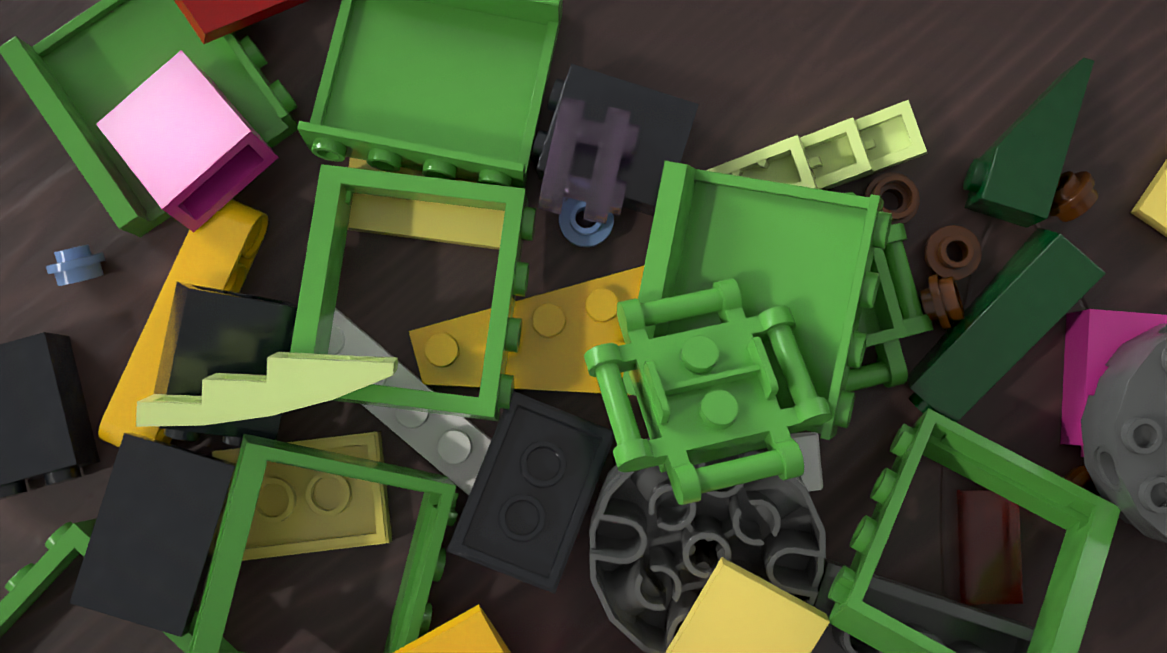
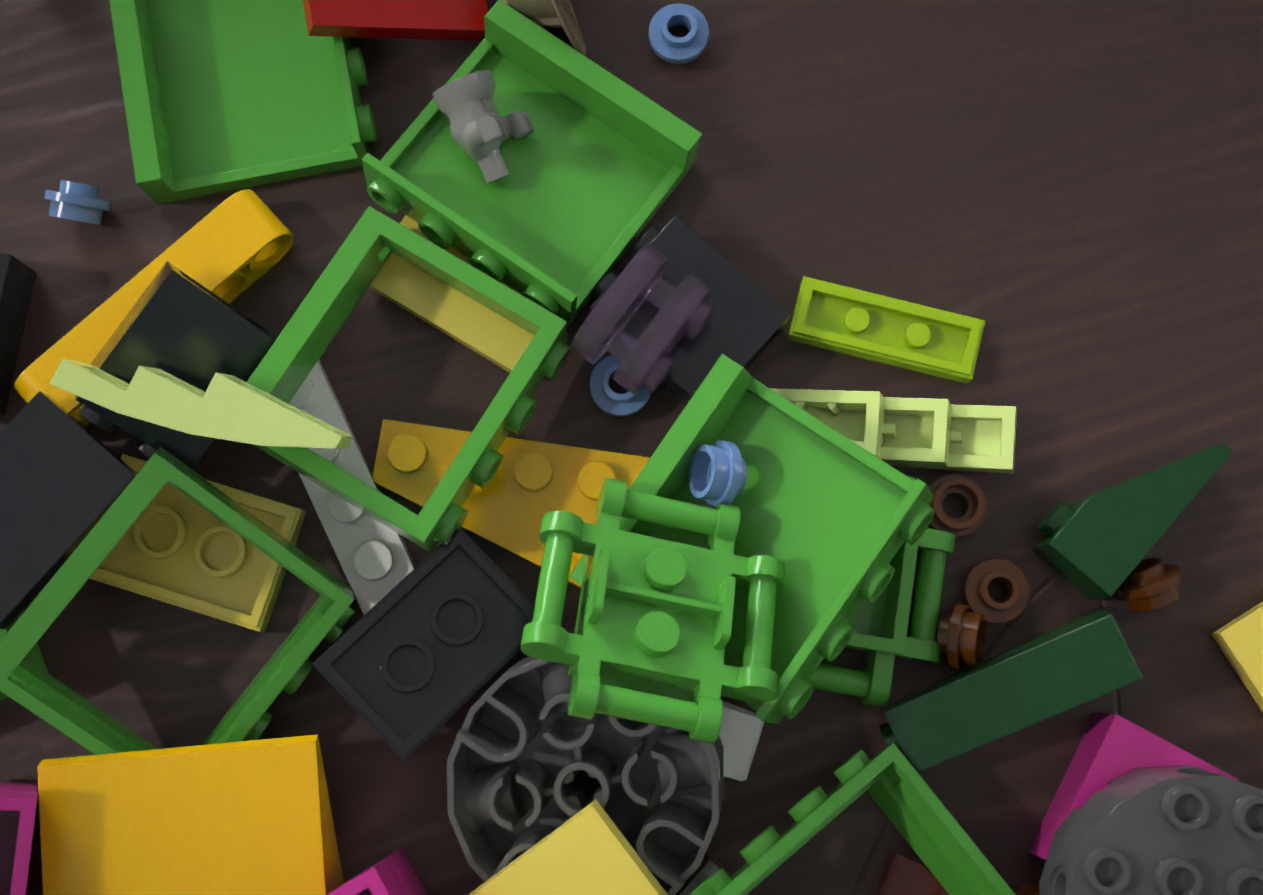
camera: 20 degrees right, 5 degrees down
(186, 142) = (245, 126): brick -> none
(375, 57) = (477, 124): none -> light grey piece
(702, 258) = (717, 473): none -> medium blue plate
(776, 82) = (886, 330): none -> lime tile

